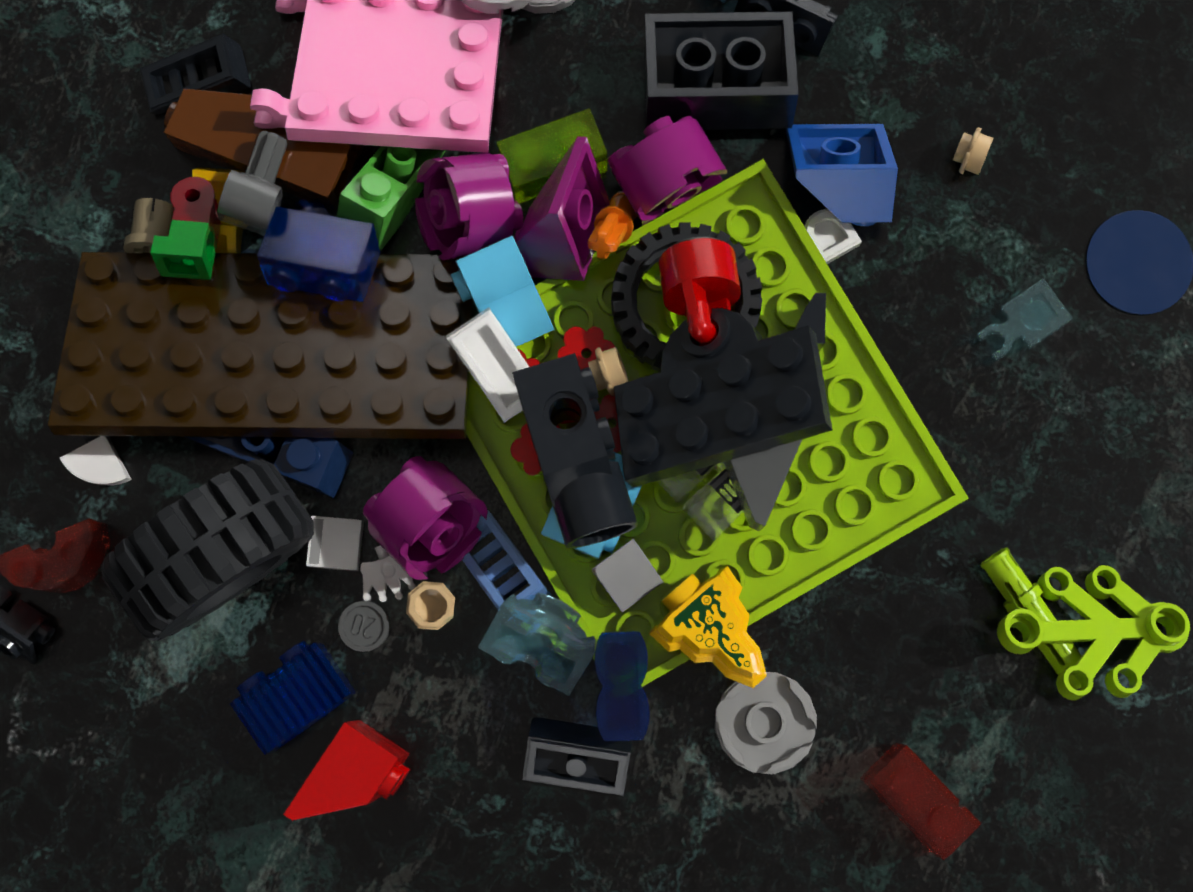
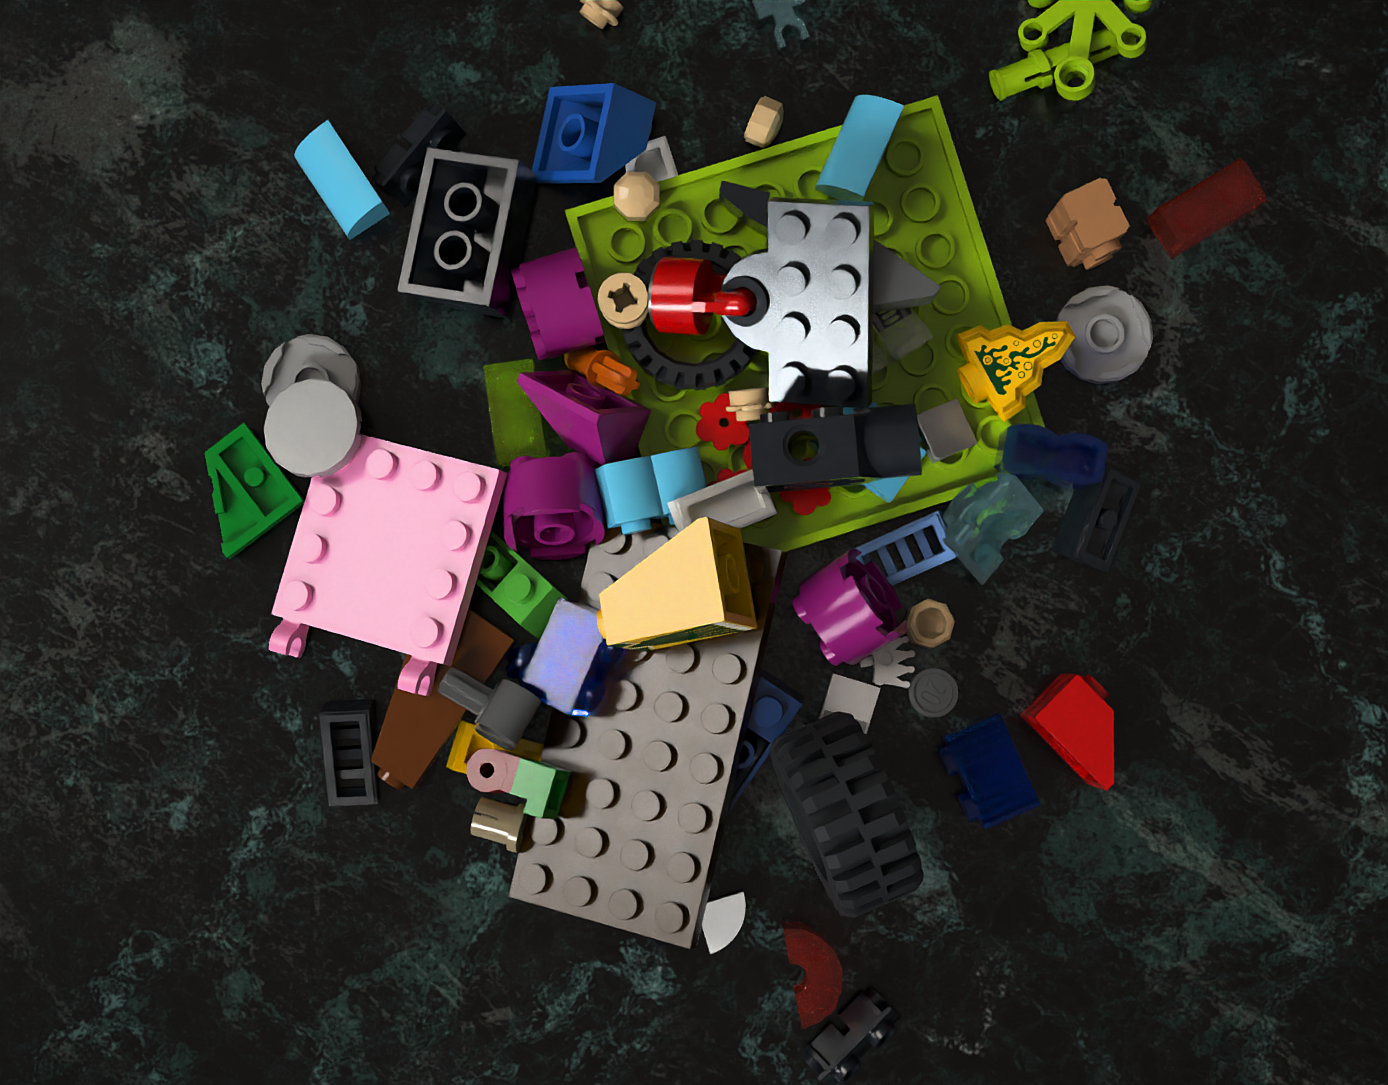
camera: 75 degrees left, 5 degrees up
(399, 333) = (681, 592): none -> yellow slope
(675, 229) = (630, 313): none -> tan wheel
(793, 221) = (636, 196): none -> tan tile
(872, 676) = (1088, 224): none -> medium nougat brick
(892, 429) = (859, 148): none -> medium azure brick
(898, 333) = (764, 122): none -> tan tile

